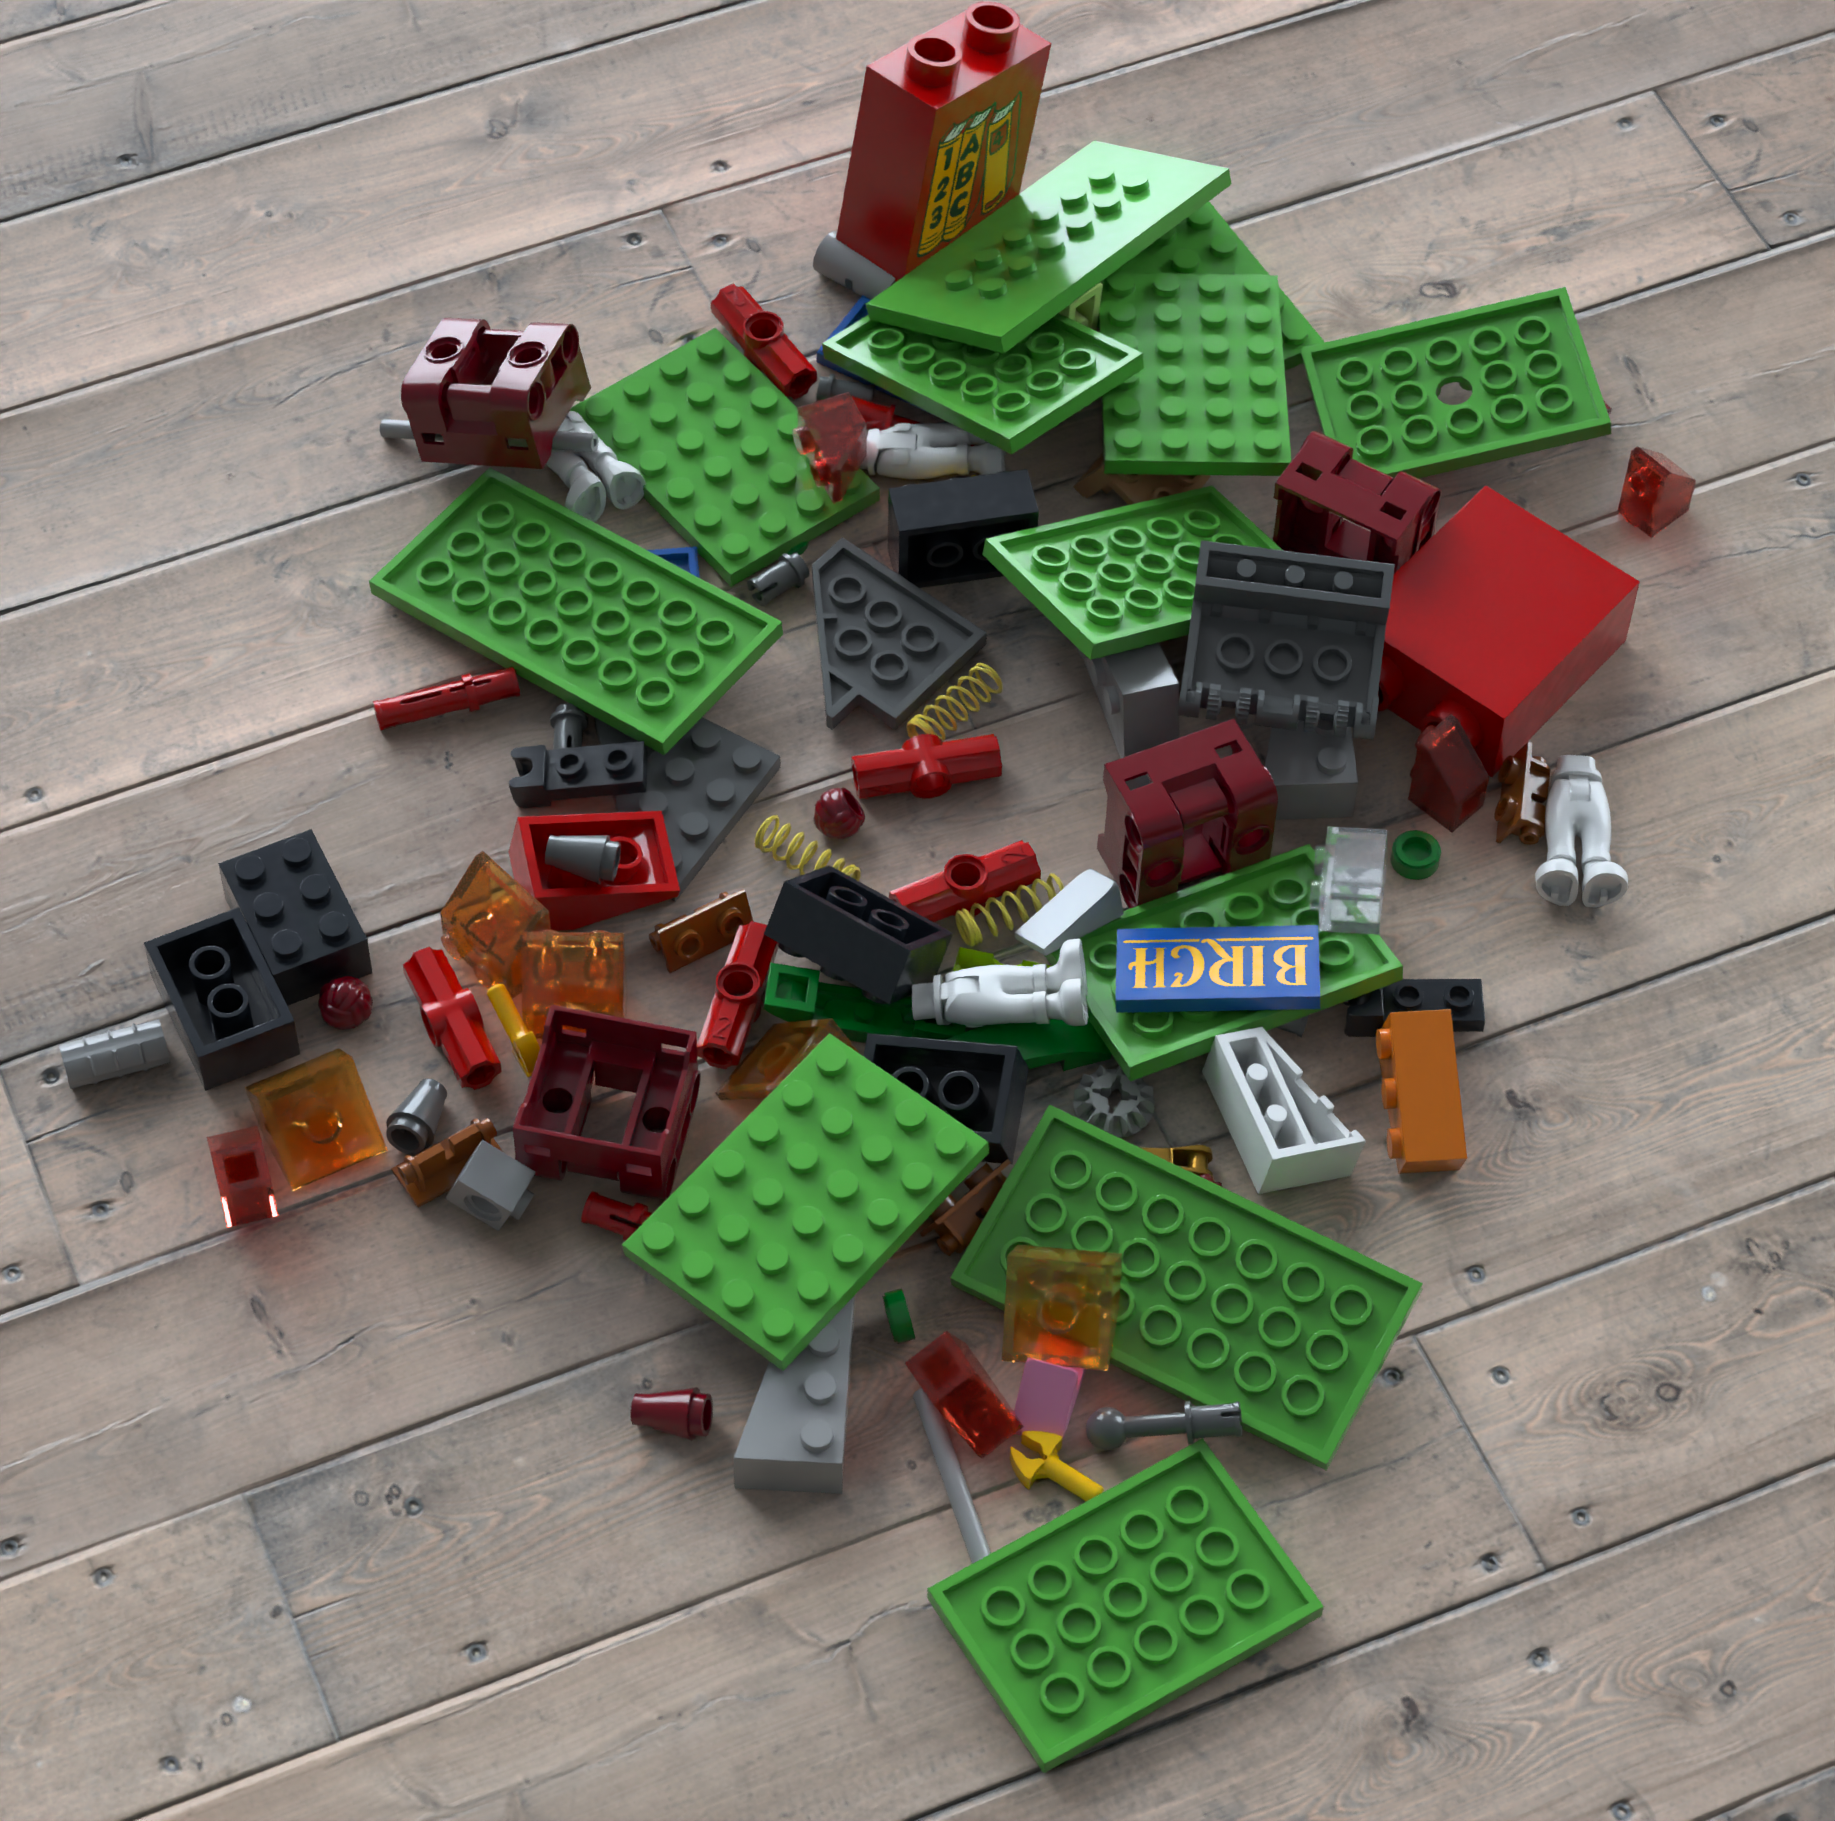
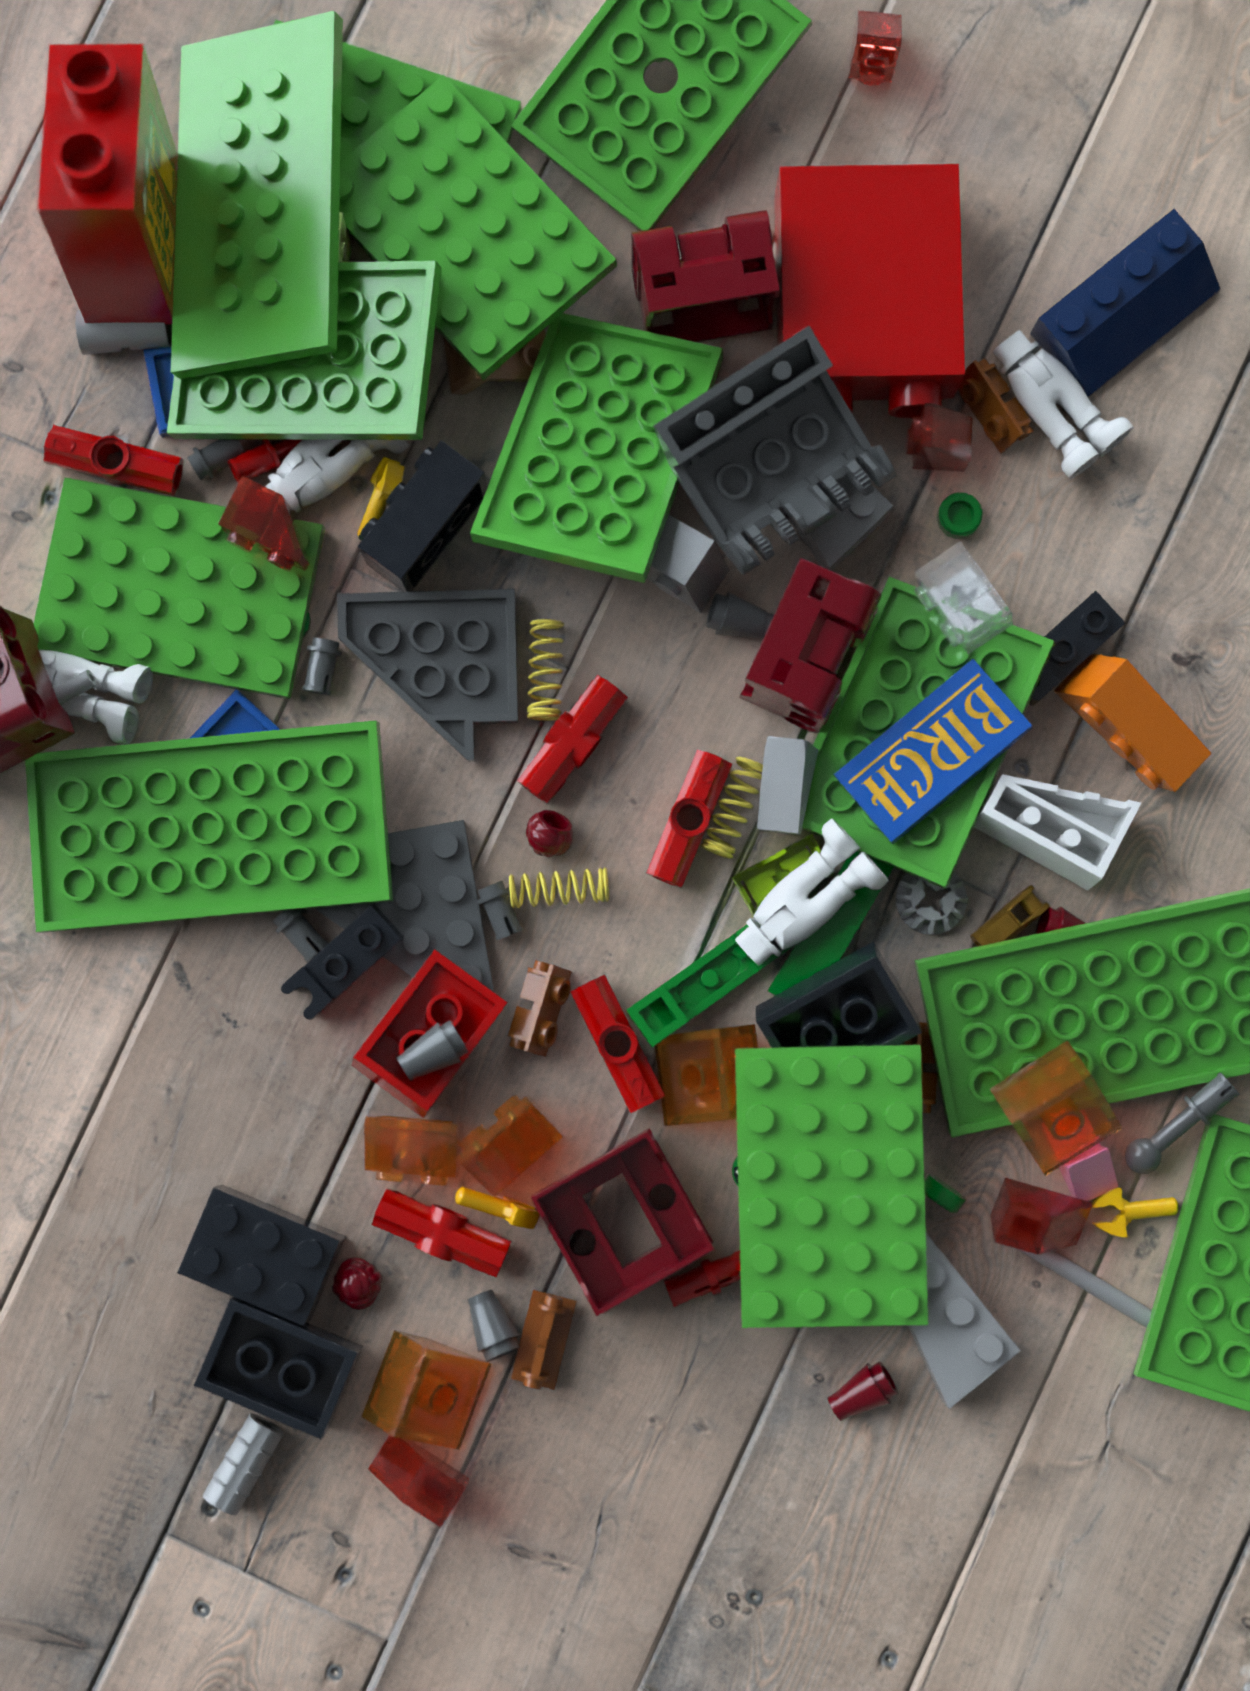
camera: 40 degrees left, 30 degrees up
(447, 698) = (158, 1024): red pin -> none
(492, 1186) = (596, 1341): light grey brick -> none
(742, 836) = (499, 910): none -> dark grey pin
(857, 934) = (666, 935): black brick -> none
(1709, 805) = (1129, 303): none -> dark blue slope

